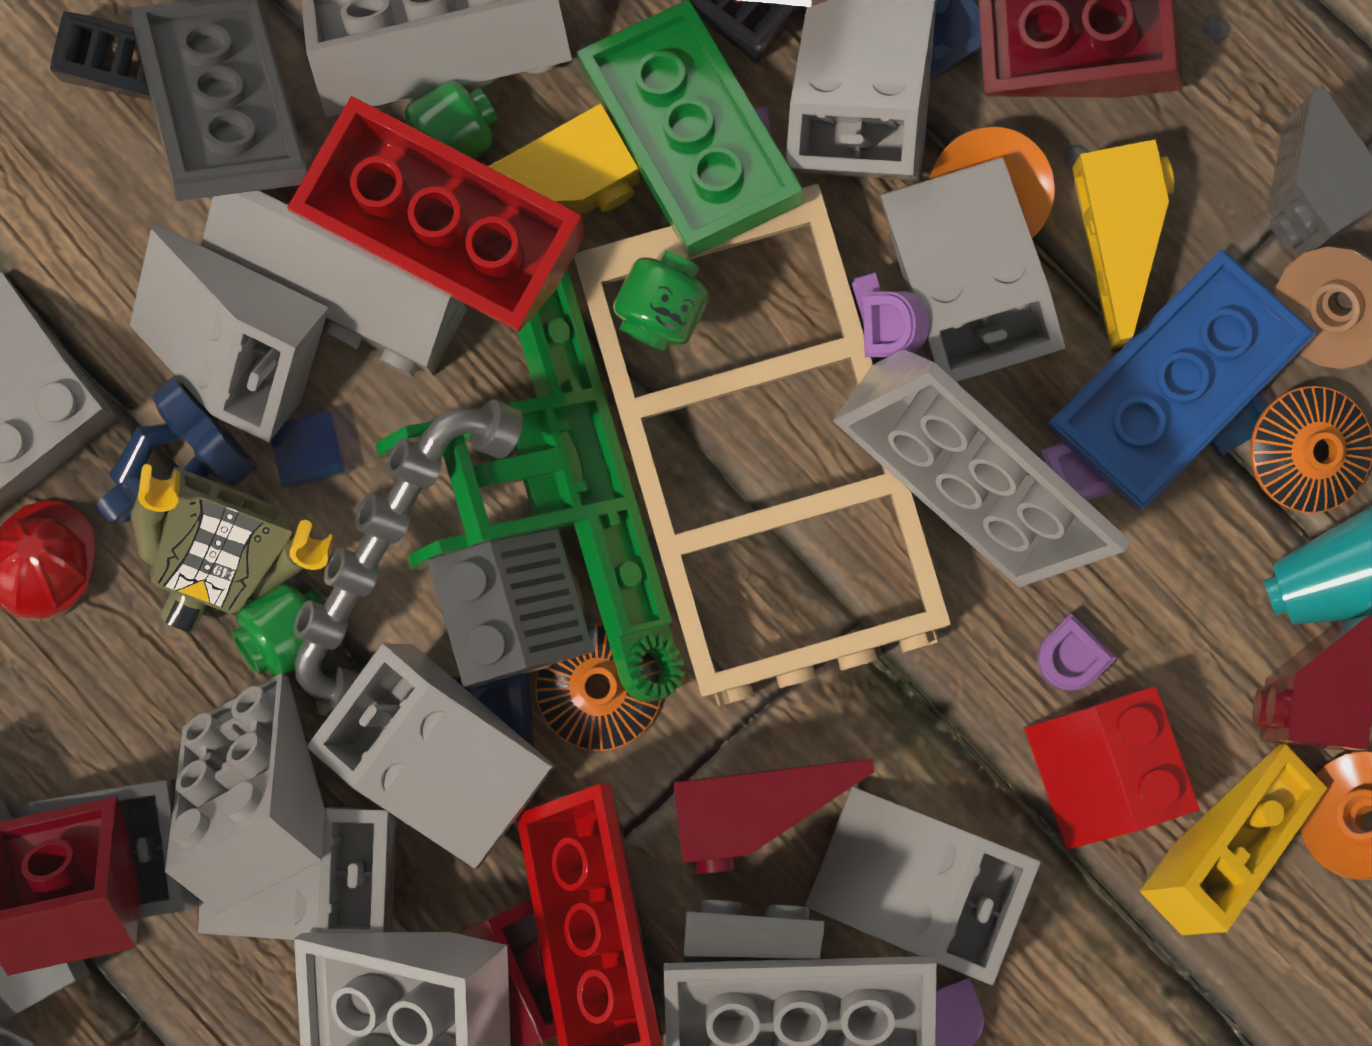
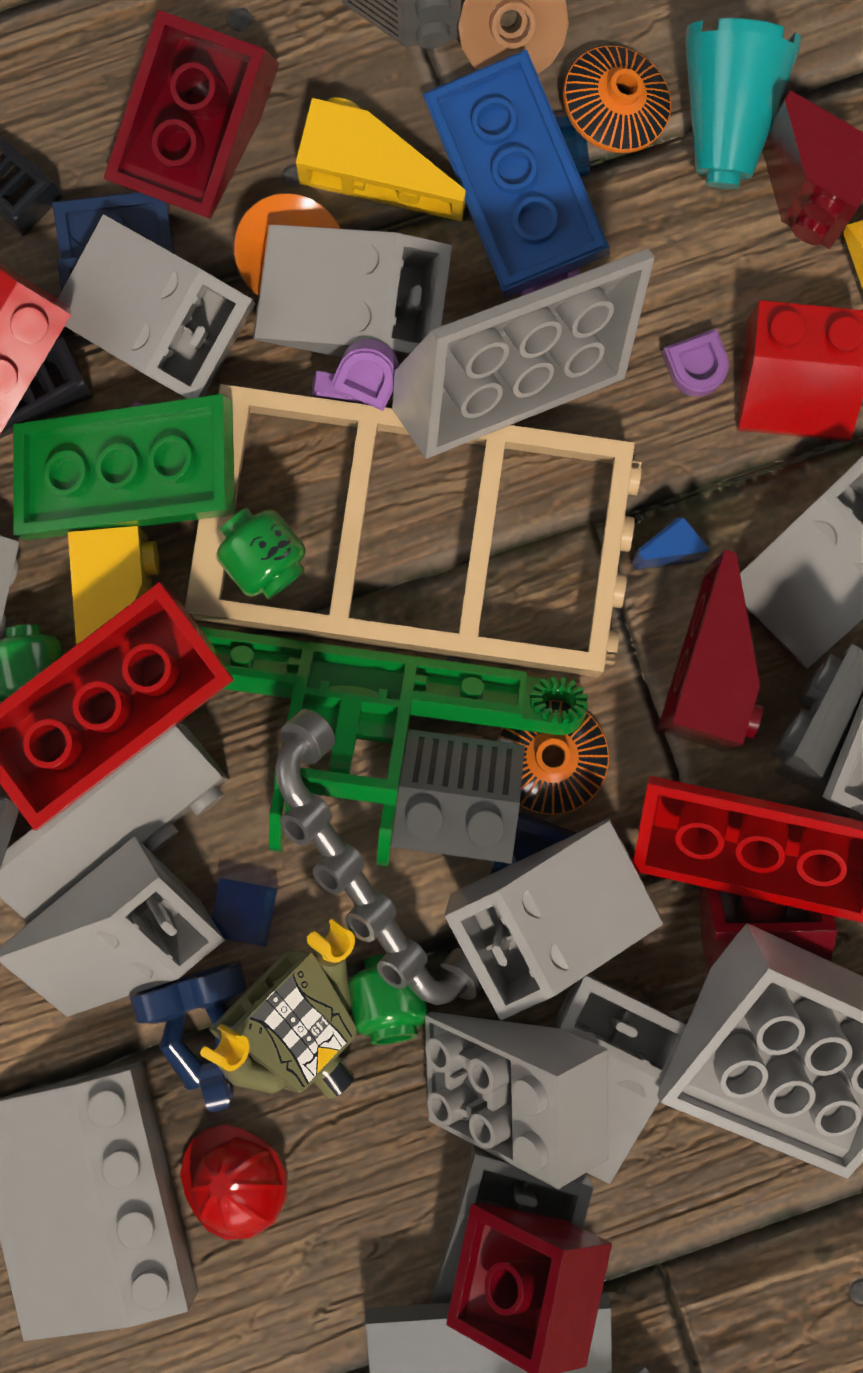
camera: 70 degrees left, 0 degrees up
(866, 710) = (671, 546): none -> blue slope

